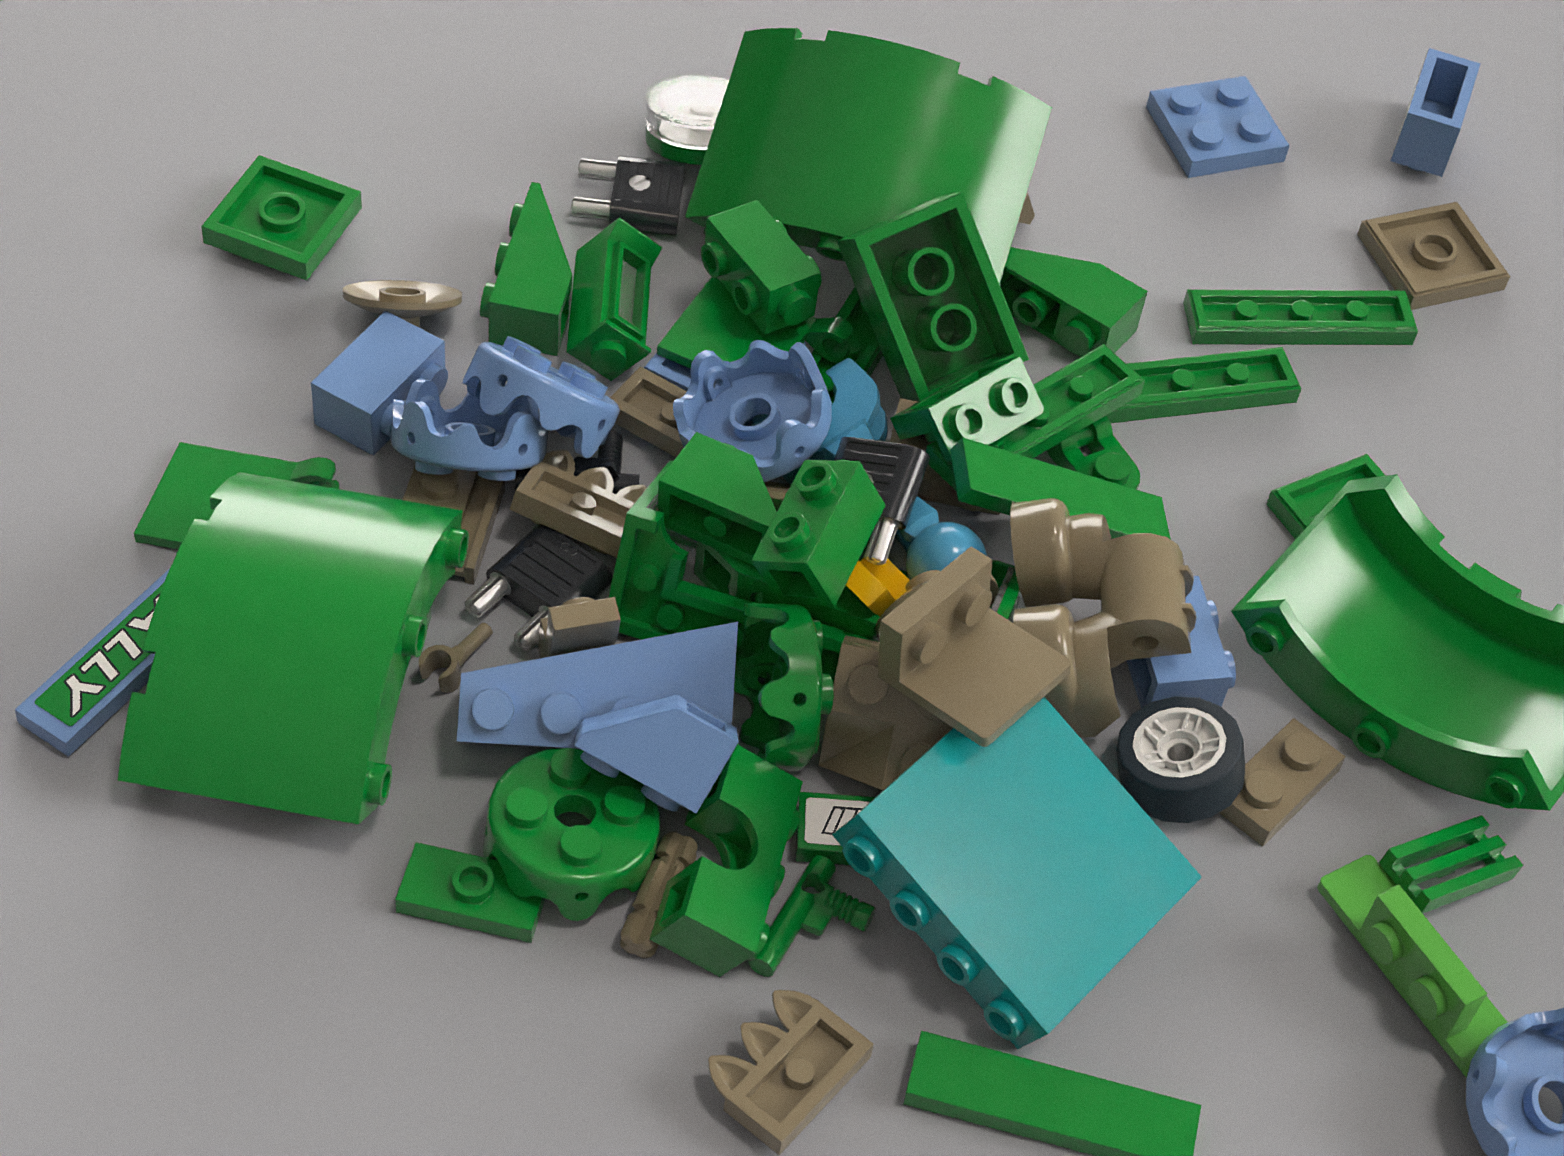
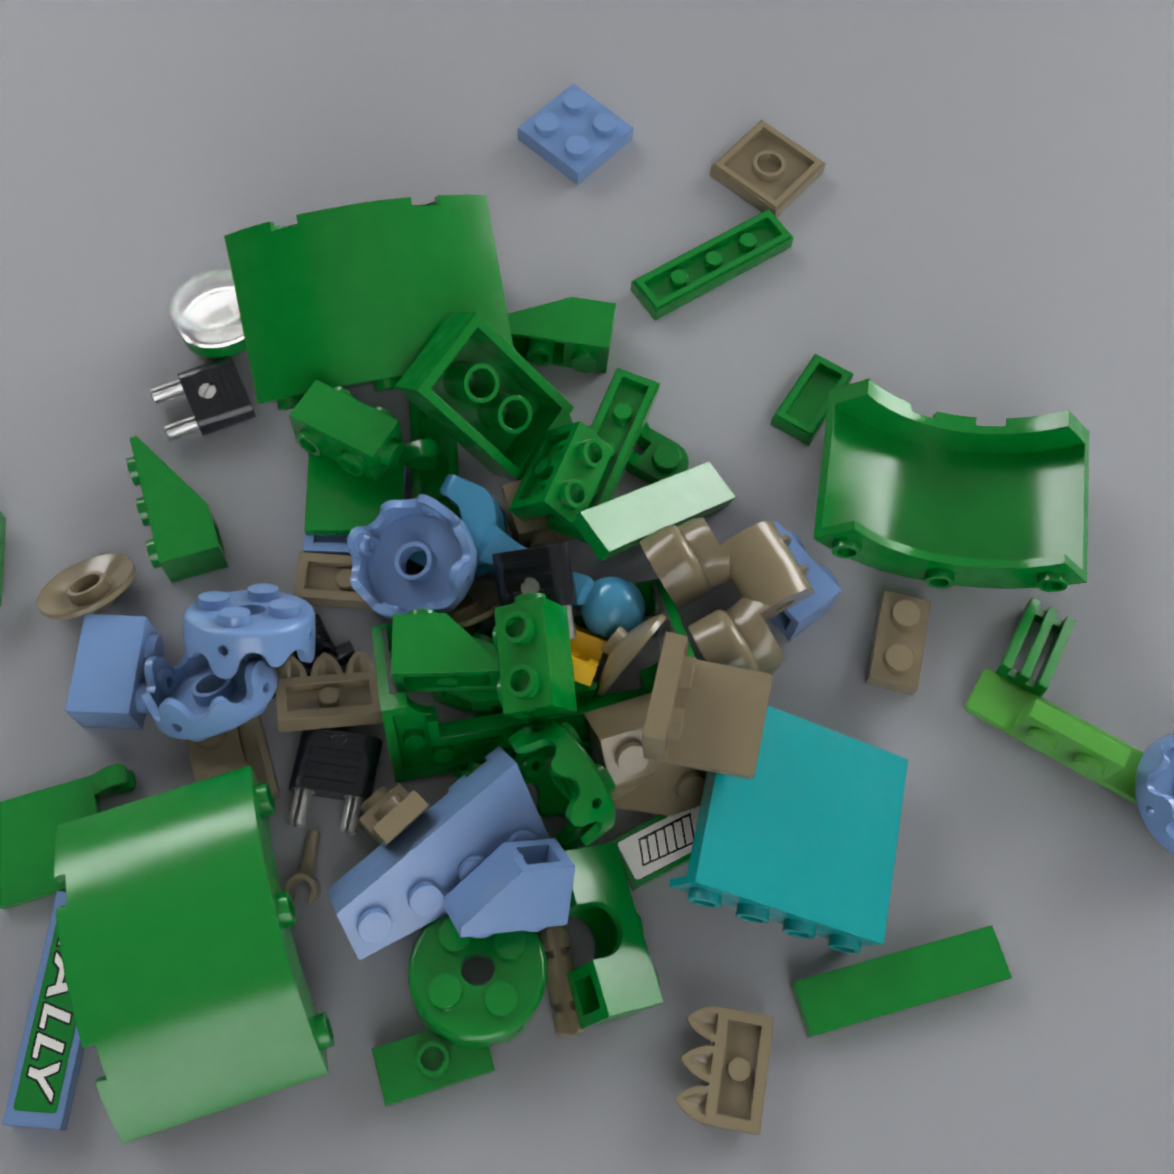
camera: 30 degrees left, 15 degrees up
(611, 299) = (246, 507): green window -> none
(810, 913) = (667, 929): green hose -> none
(1181, 759) = (822, 649): black wheel -> none
(1211, 384) = (682, 348): green tile -> none
(1435, 112) = (716, 55): medium blue brick -> none

